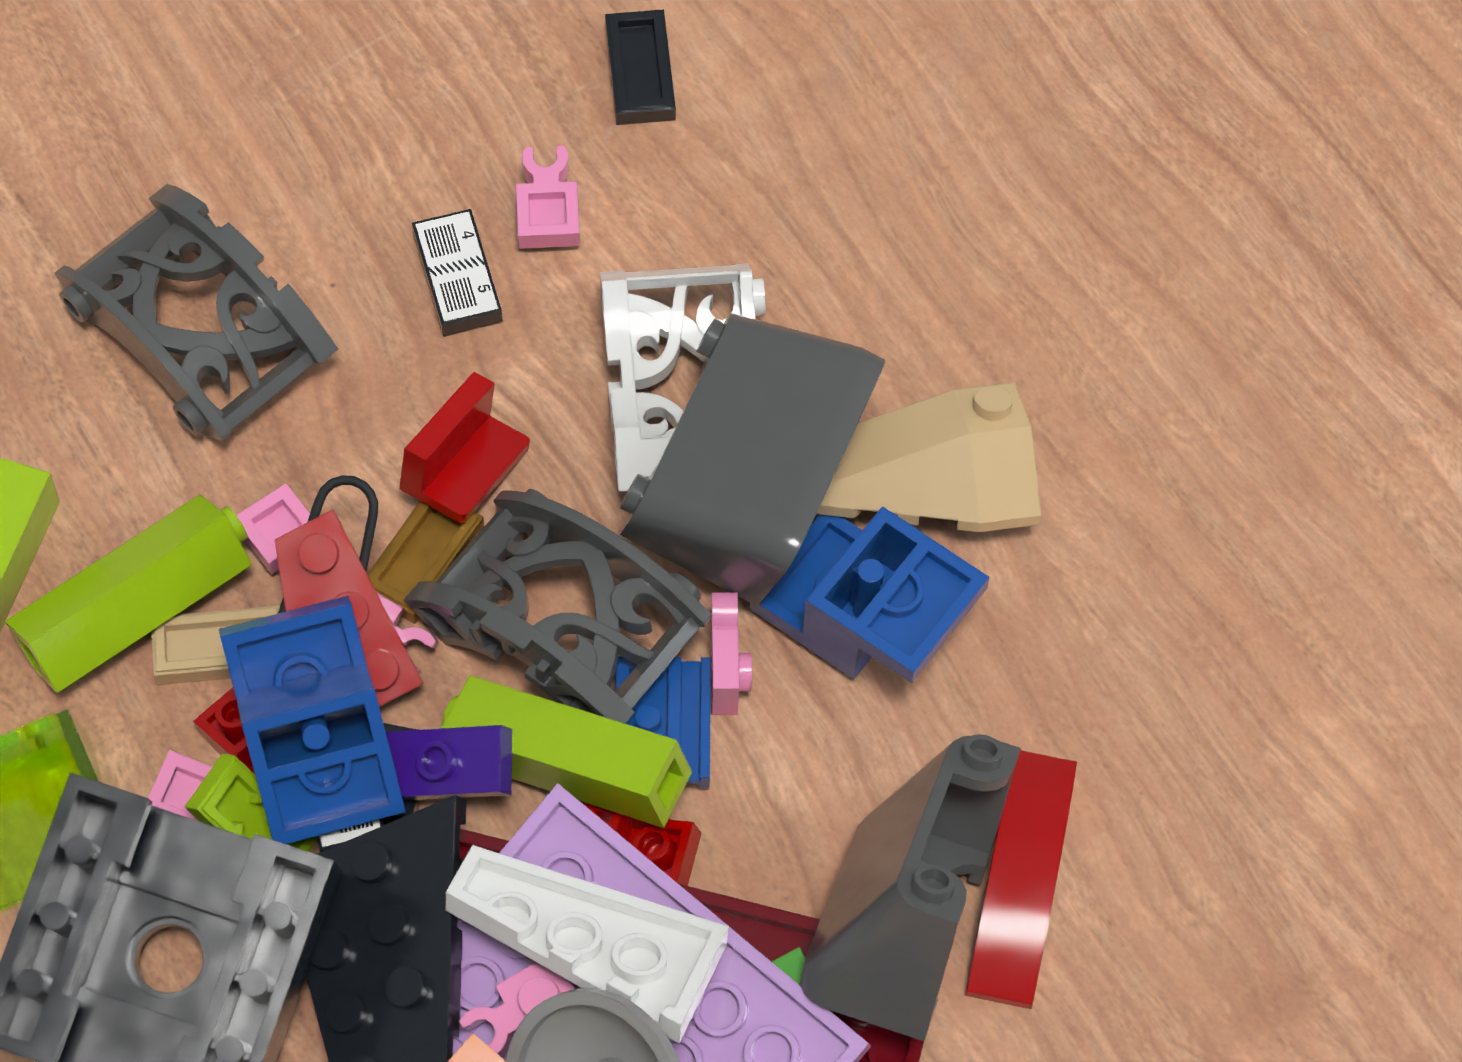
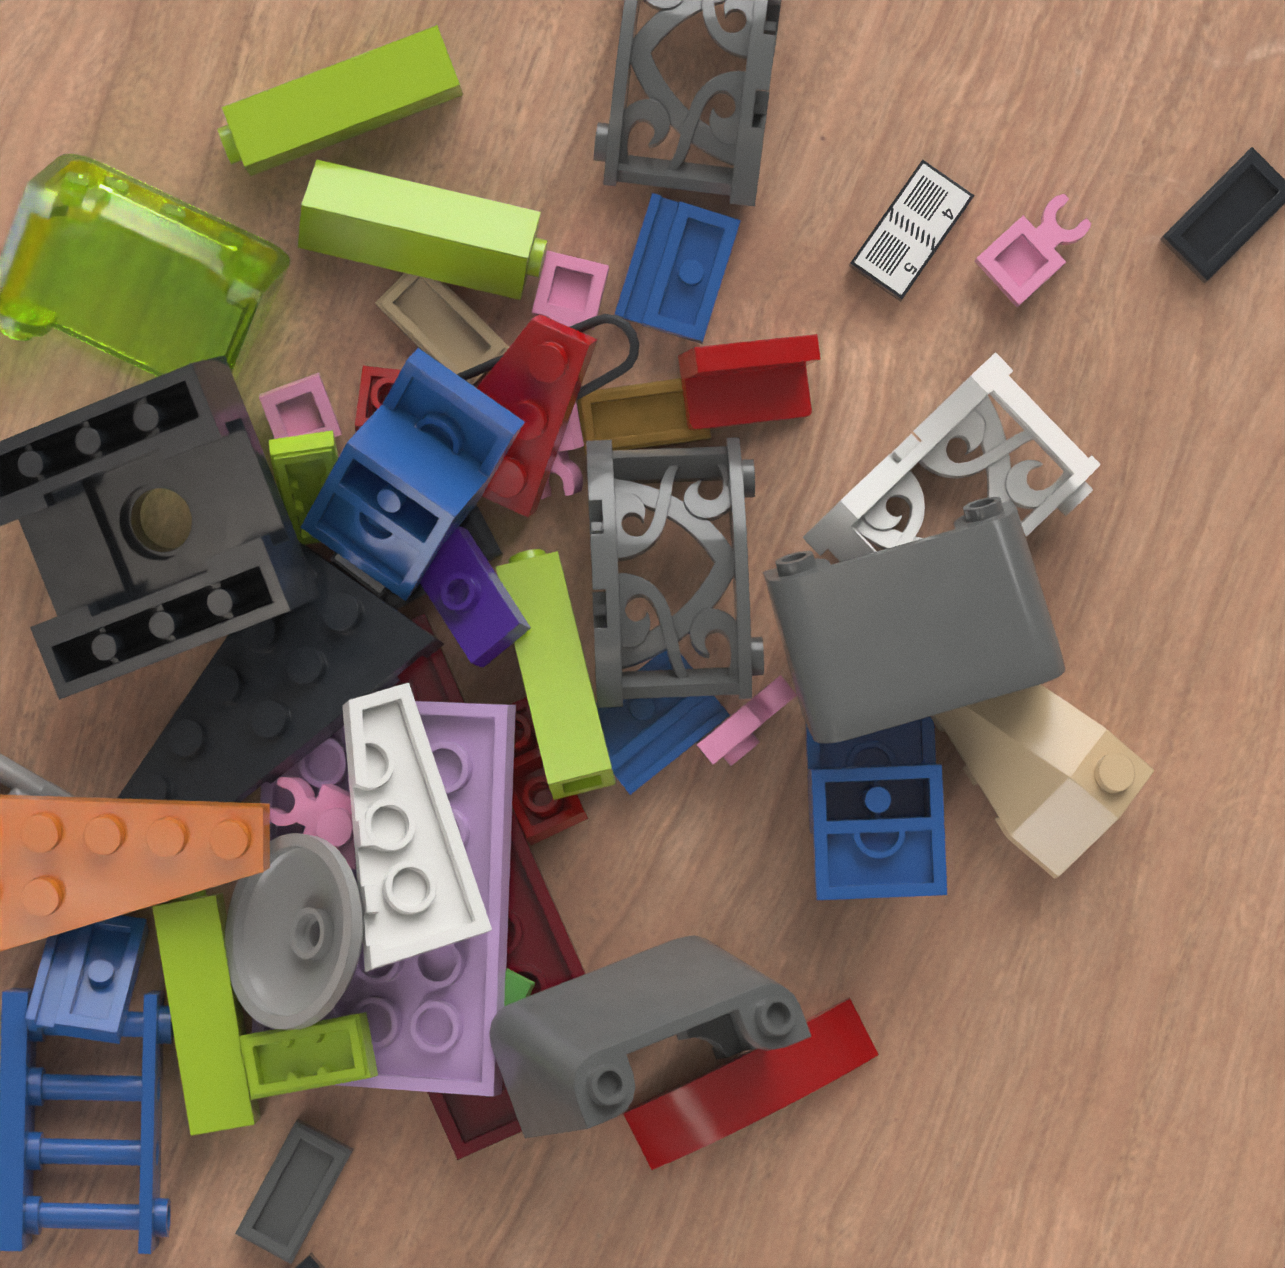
camera: 55 degrees right, 25 degrees up
(333, 434) = (677, 268): none -> blue plate

